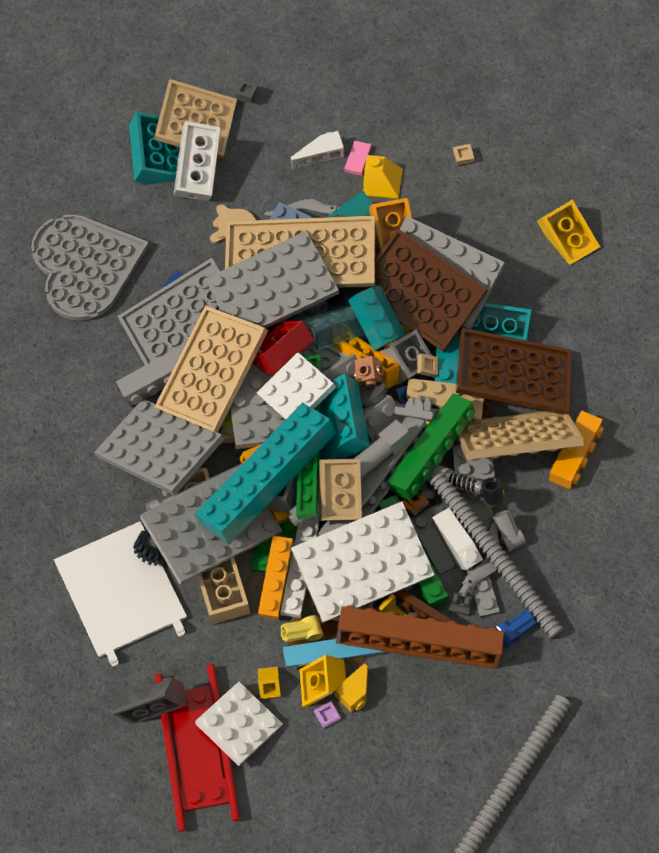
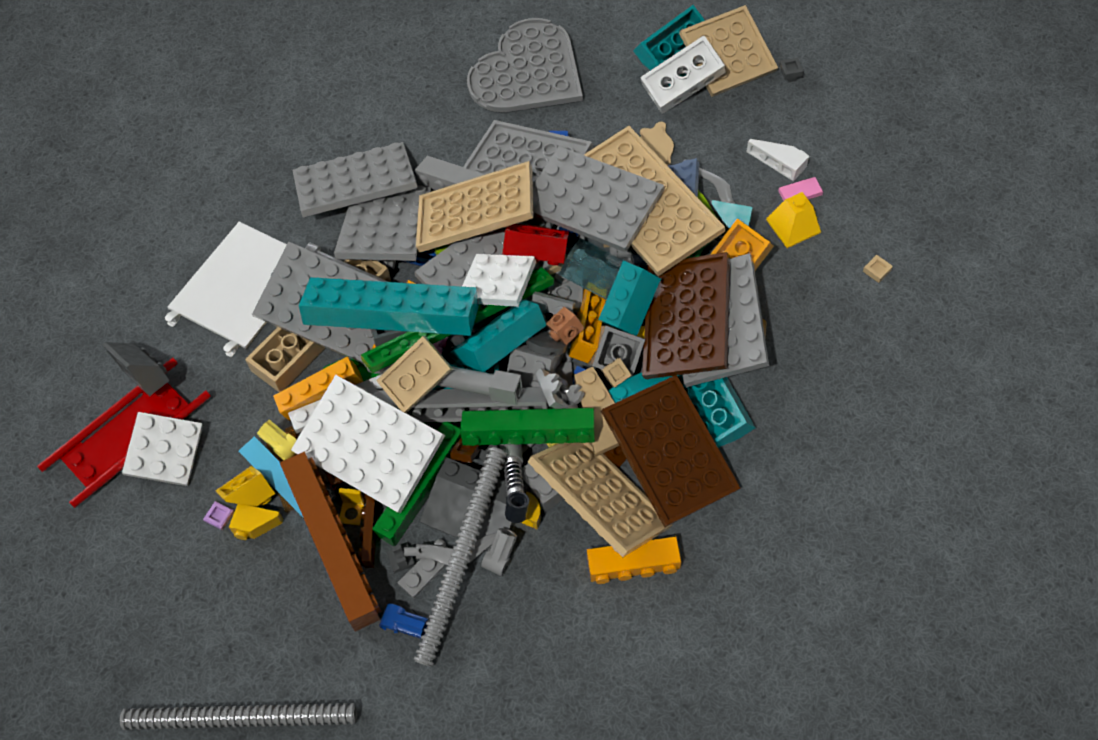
camera: 55 degrees right, 0 degrees up
(91, 448) = (353, 179): none -> light grey plate
(269, 682) = (220, 448): yellow brick -> none
(457, 540) = (453, 511): white slope -> none
(568, 232) = (869, 407): yellow slope -> none

